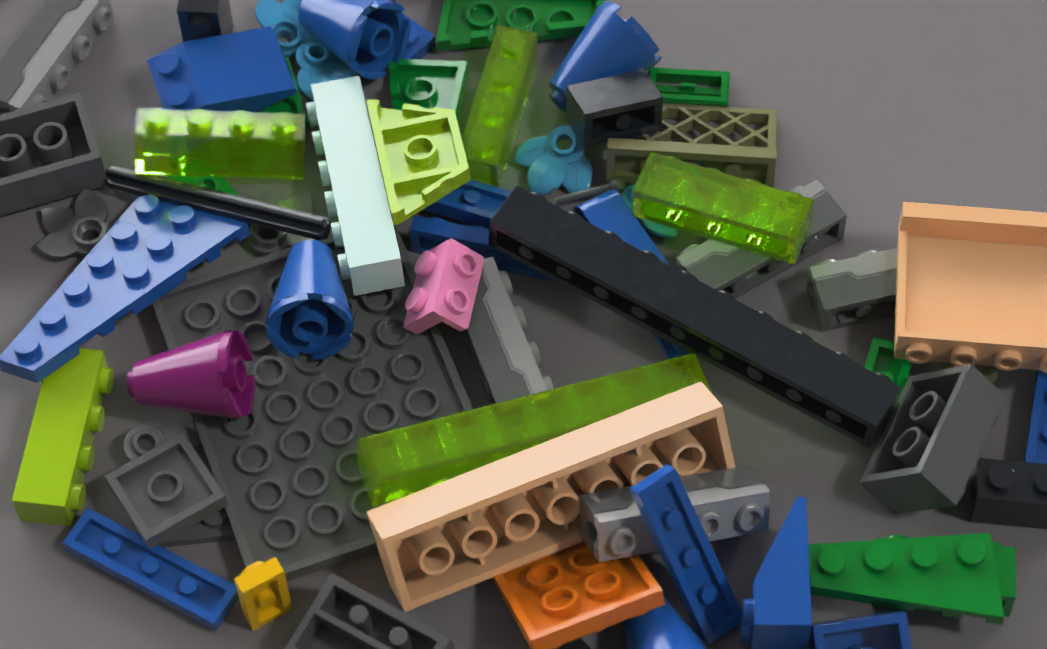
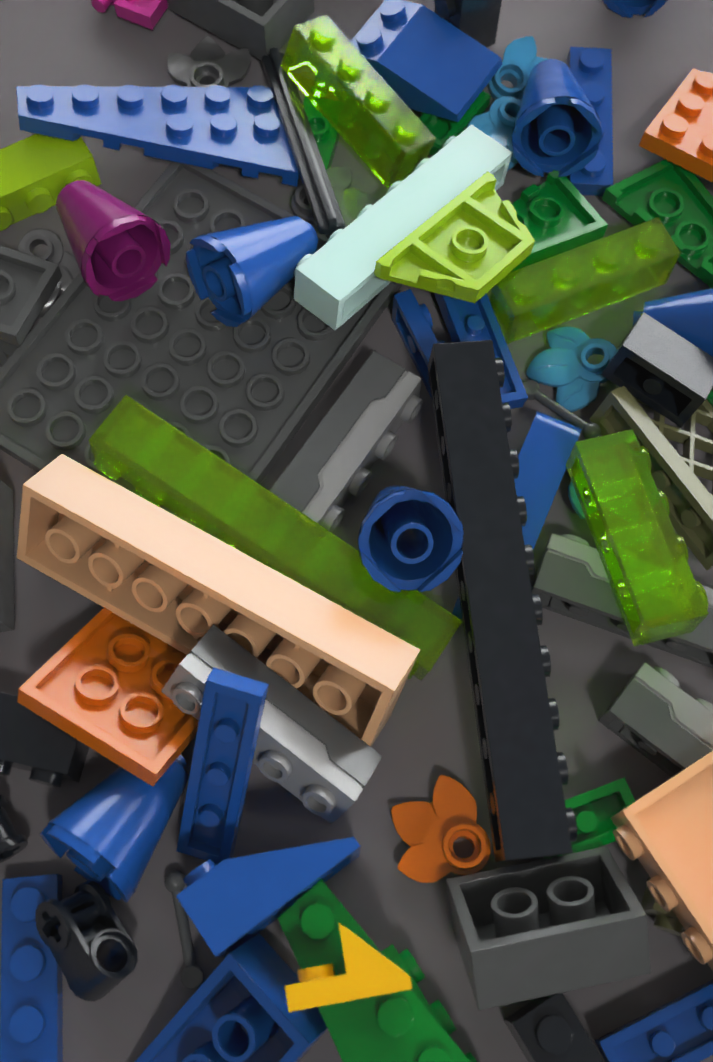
camera: 50 degrees right, 10 degrees up
(444, 287) = (354, 363): bright pink bracket -> none
(612, 334) = (410, 539): none -> blue cone
(817, 473) = (434, 827): none -> orange plate
(883, 546) = (366, 976): none -> yellow slope

